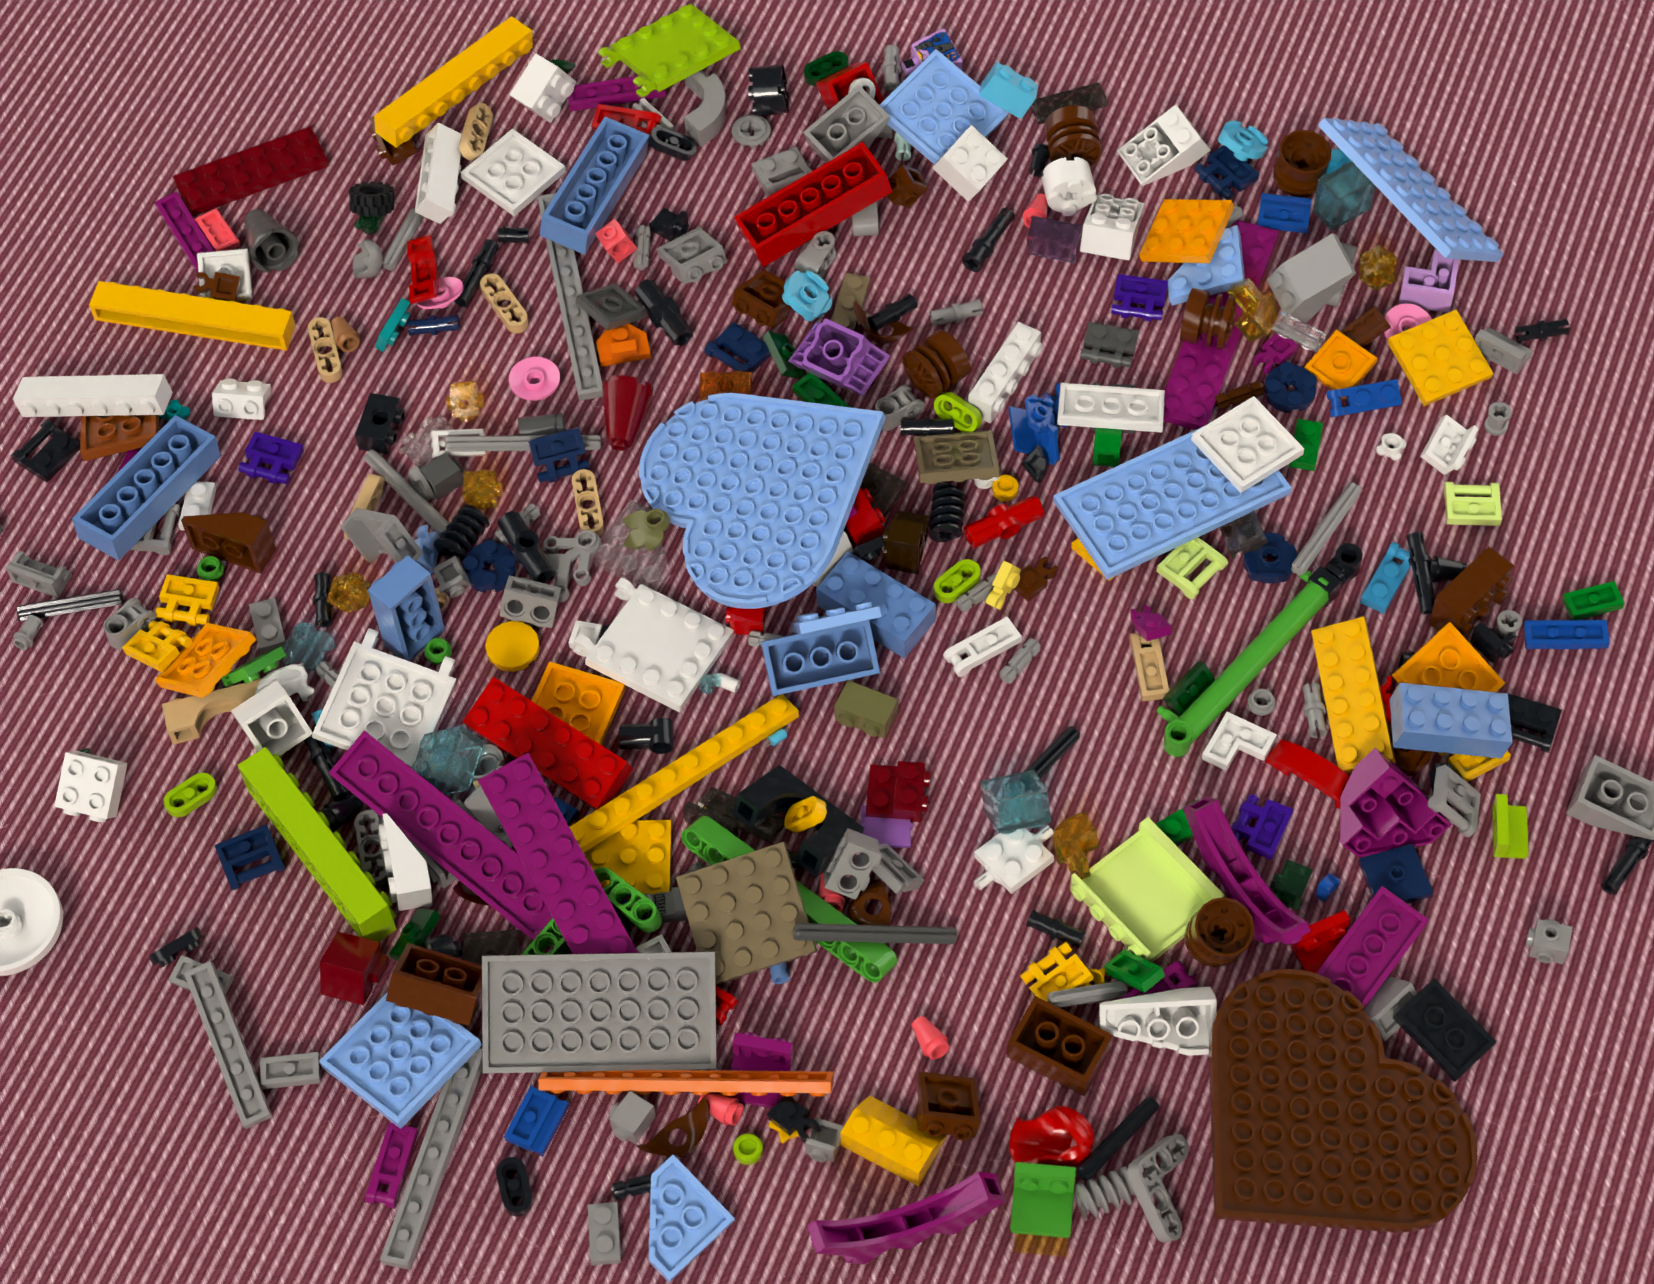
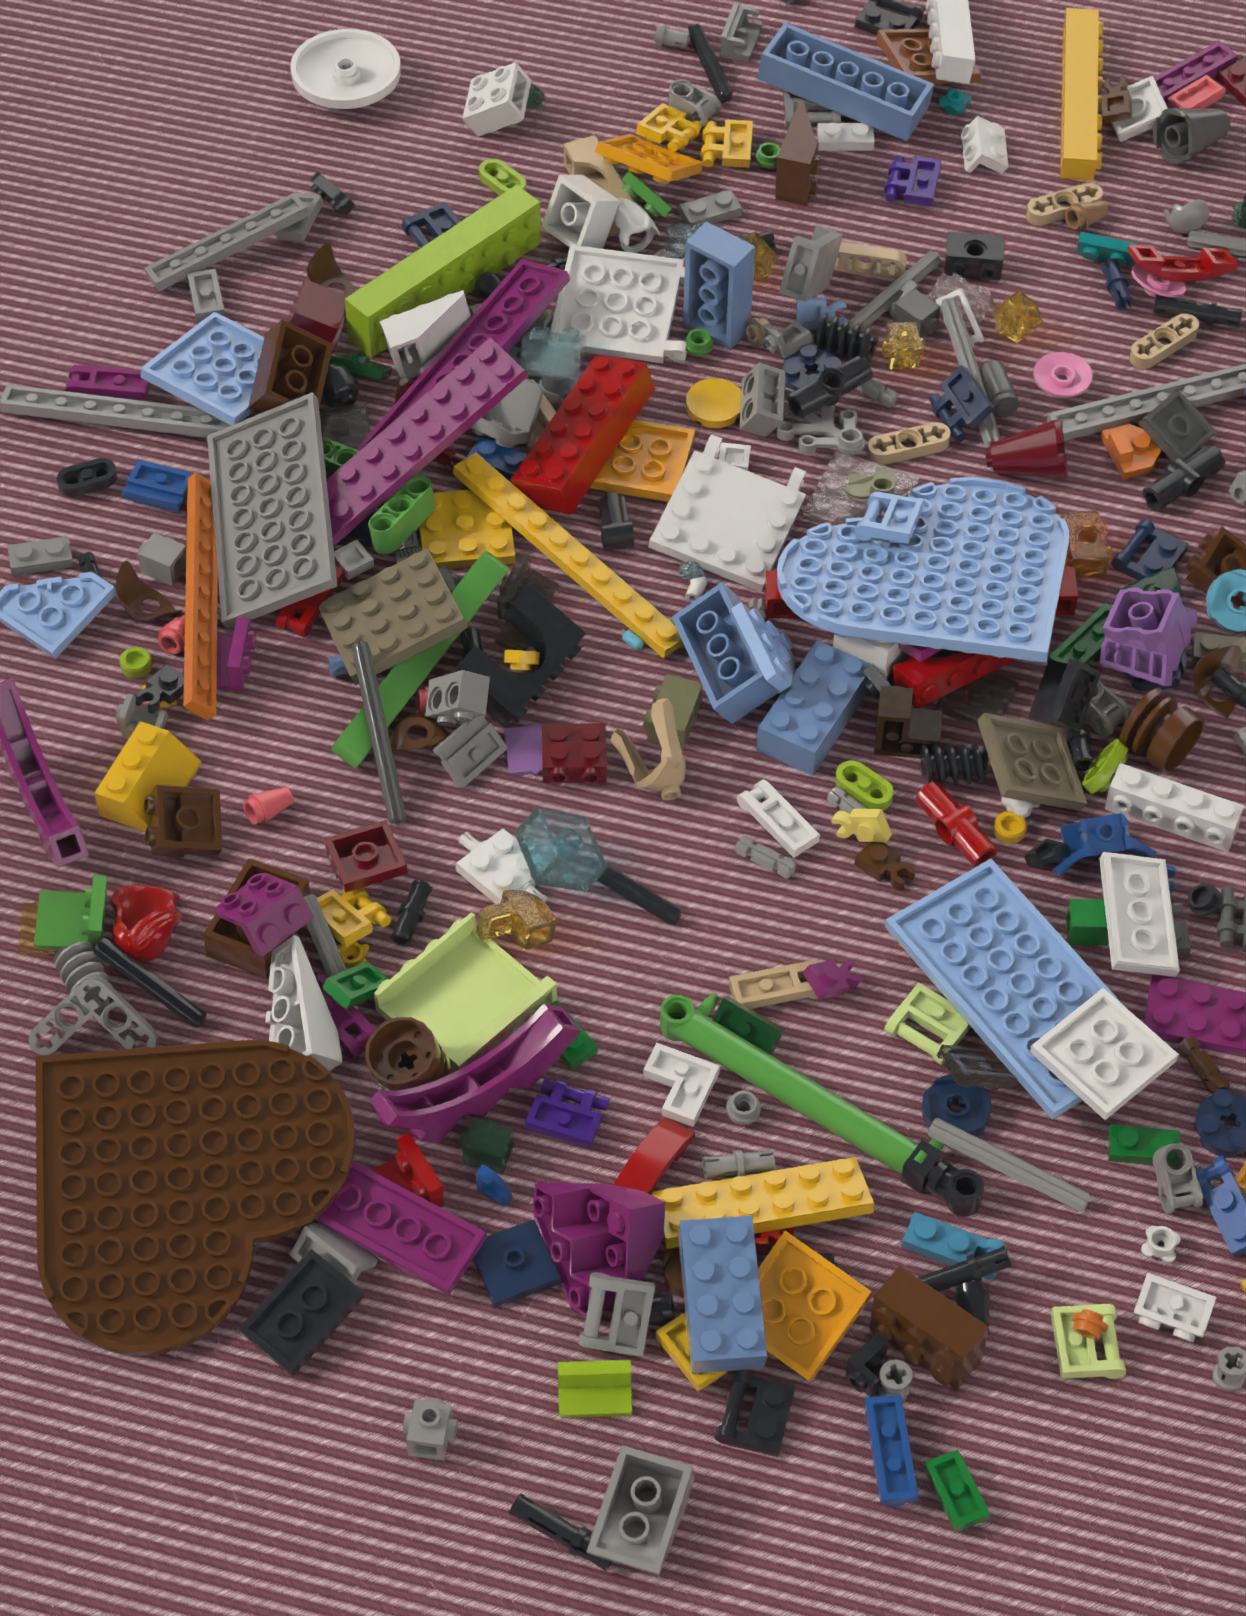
camera: 80 degrees right, 5 degrees down
(281, 957) = (325, 271): none -> reddish brown piece
(697, 507) = (898, 521): none -> light blue plate
(901, 424) = (1064, 694): none -> black bracket
(923, 715) = (671, 771): none -> tan piece
(1001, 957) = (365, 856): none -> dark red plate
(1071, 1027) = (266, 911): none -> magenta bracket
(1090, 368) = (1204, 899): none -> black plate
(1341, 425) = (1177, 1181): none -> light grey piece
(1470, 493) = (1089, 1324): none -> orange plate

